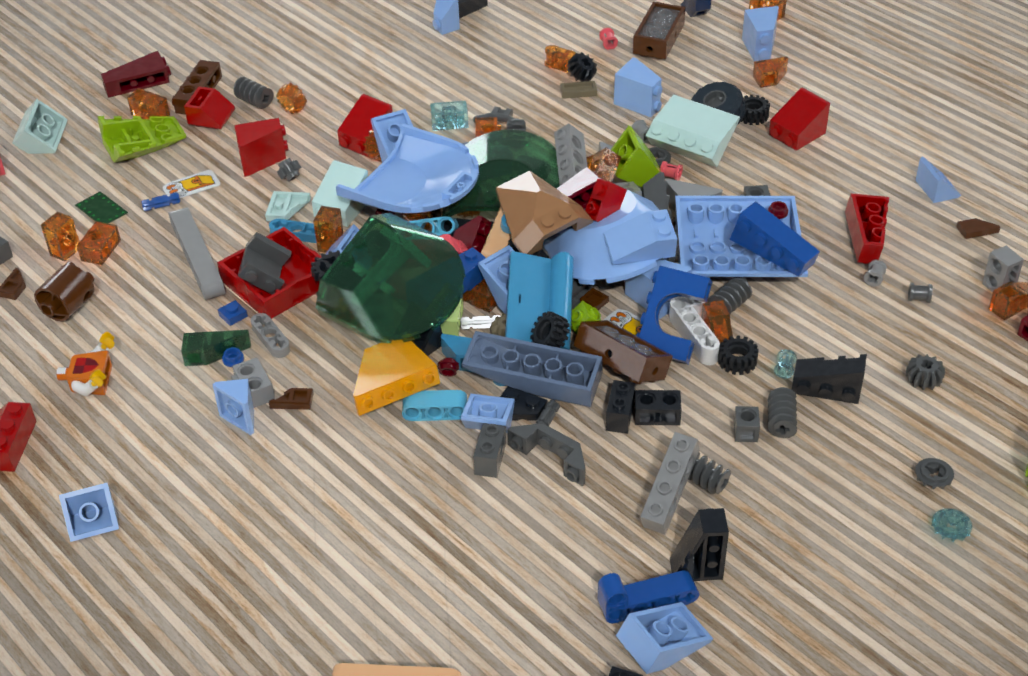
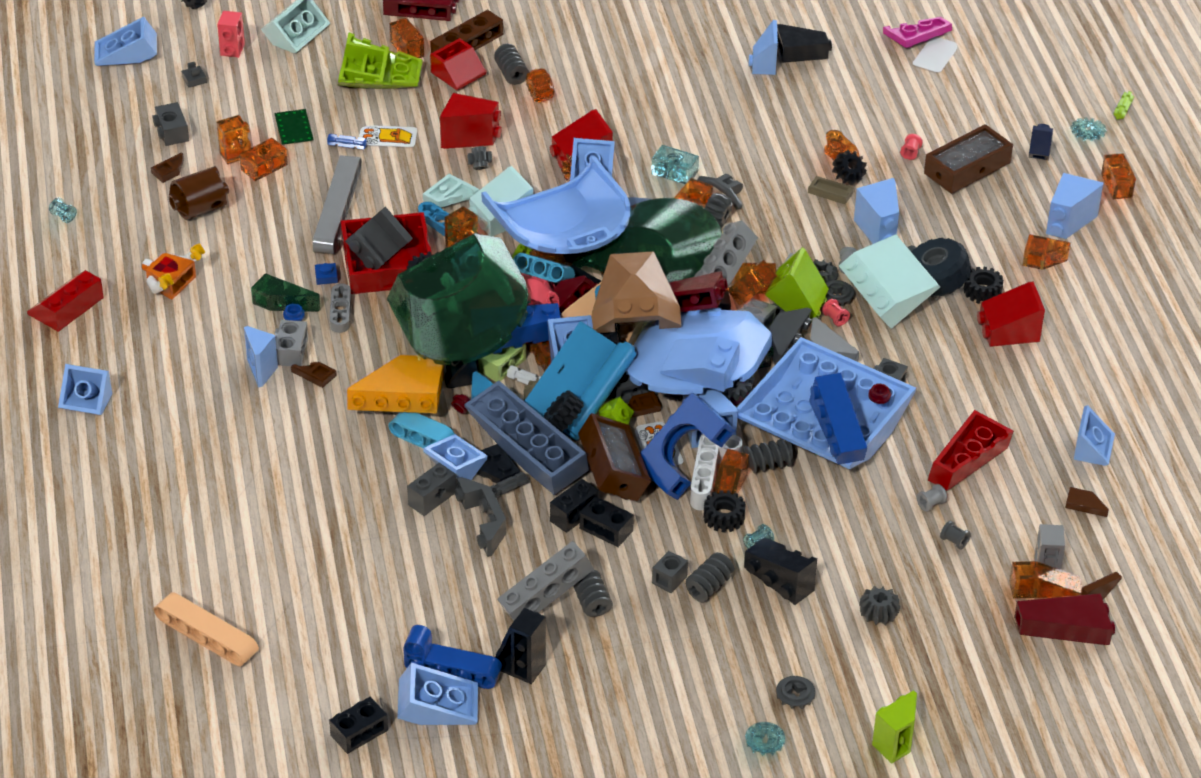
camera: 30 degrees right, 0 degrees up
(604, 200) = (706, 311): red slope -> none

